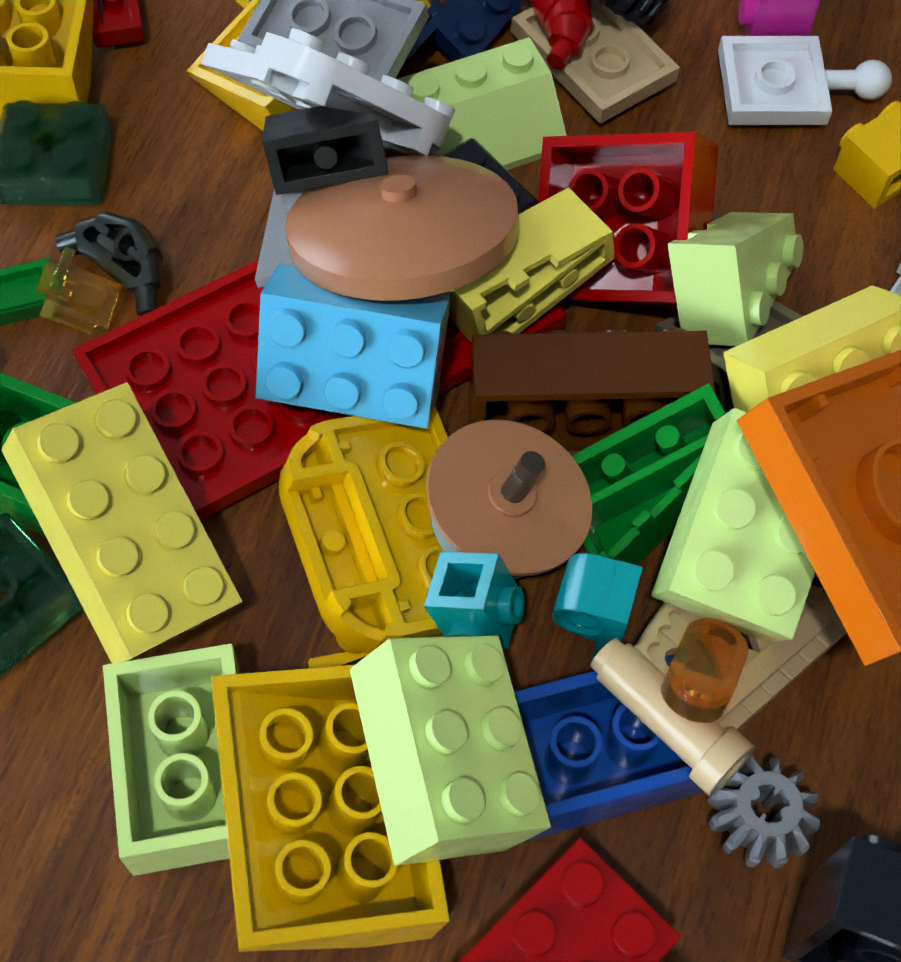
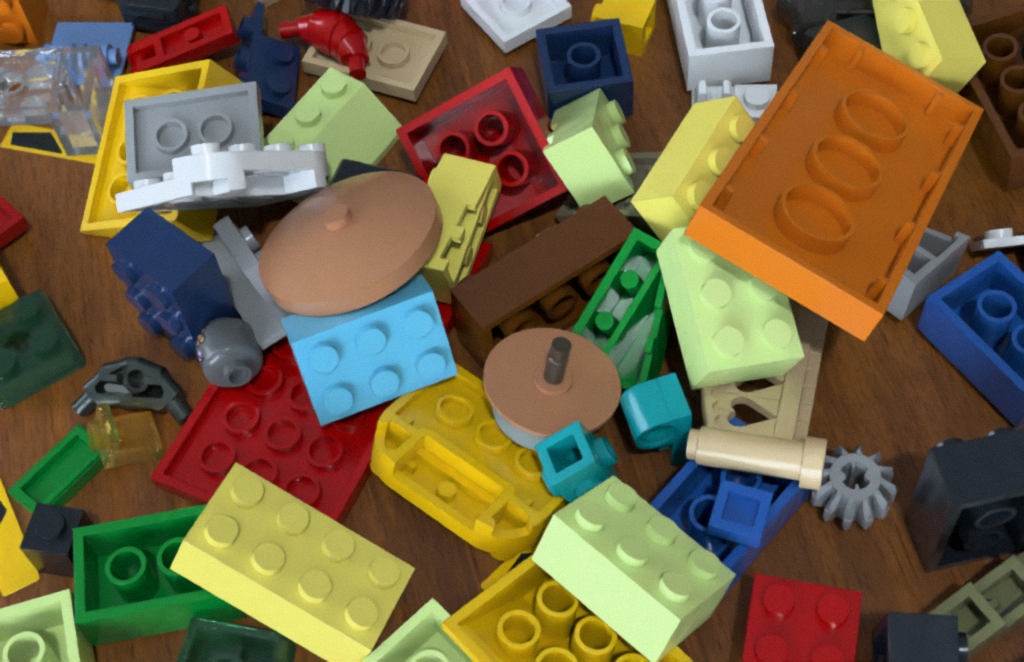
camera: 25 degrees left, 5 degrees down
(212, 172) = (170, 280): none -> dark blue brick
(223, 269) = (228, 352): none -> dark grey head
(322, 148) = (257, 220): pearl dark grey slope -> none
(603, 764) = (740, 513): none -> blue plate
(705, 670) = (762, 412): clear orange tile -> none
(797, 174) = (582, 59): none -> dark blue brick

